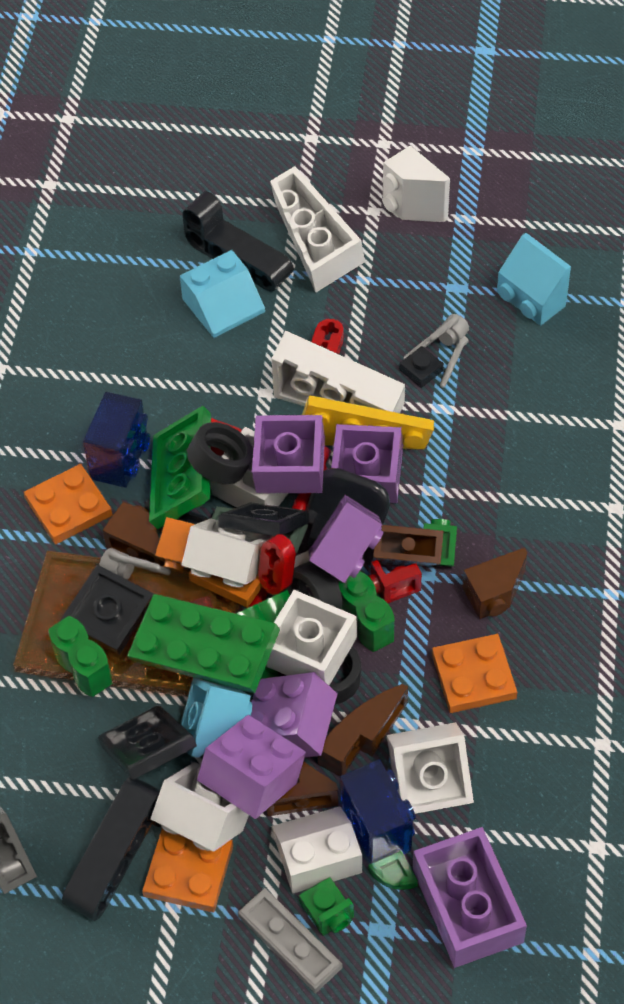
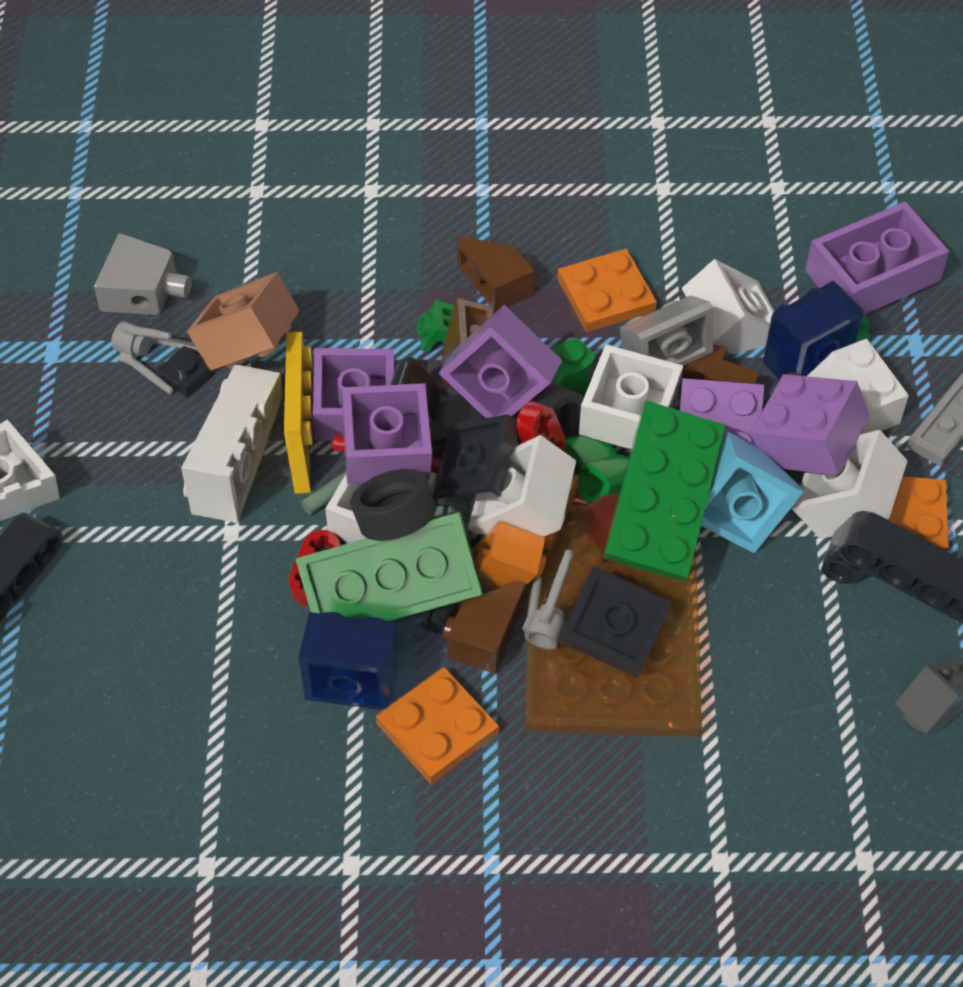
camera: 100 degrees left, 0 degrees up
(80, 656) = (690, 637): green brick -> none
(146, 741) = (785, 553): black tile -> none
(221, 294) = (75, 592): medium azure slope -> none
(327, 907) = (920, 379): green bracket -> none
(336, 339) = (156, 470): red beam -> none
(375, 676) = (674, 333): none -> light grey slope
(440, 387) = (244, 322): none -> nougat brick
(517, 334) = (139, 278): none -> light grey torso
(534, 280) = (60, 255): medium azure slope -> none

